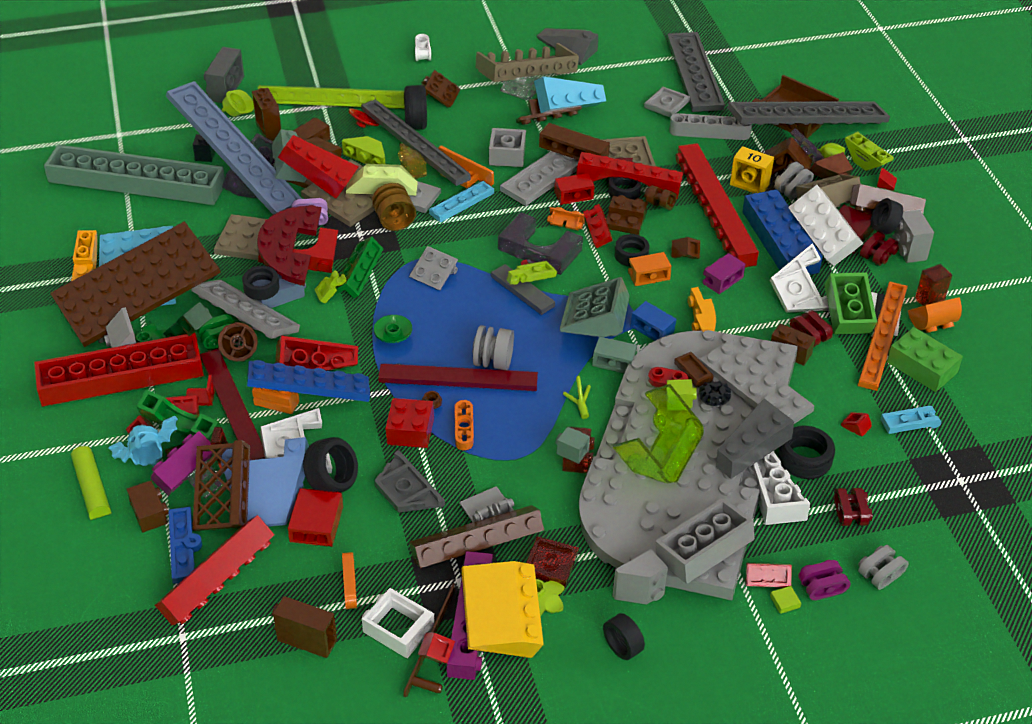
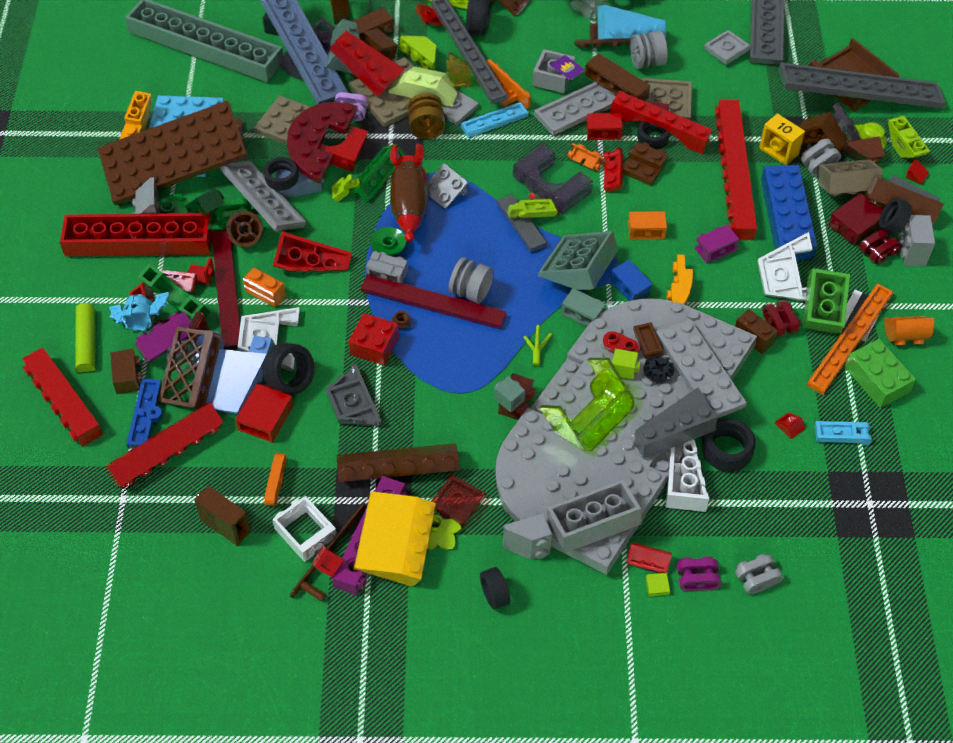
camera: 15 degrees right, 10 degrees up
(82, 546) = (62, 397): none -> red brick
(308, 381) = (294, 280): blue plate -> none
(400, 275) = (408, 190): none -> reddish brown piece
(400, 352) = (387, 267): none -> light grey brick
(468, 431) = (424, 357): orange beam -> none
(486, 505) = (418, 433): light grey hinge -> none
(522, 140) = (567, 67): none -> dark purple sticker
(594, 113) = (648, 49): none -> light grey wheel
(630, 241) = (636, 192): black tyre -> none
(660, 197) = (682, 151): reddish brown brick -> none
(686, 247) = (689, 210): reddish brown panel -> none
(708, 127) = (756, 82): light grey beam -> none
(825, 225) = (831, 213): white brick -> none
(858, 500) = (761, 502): dark red brick -> none
(933, 285) = (916, 298): clear red brick -> none

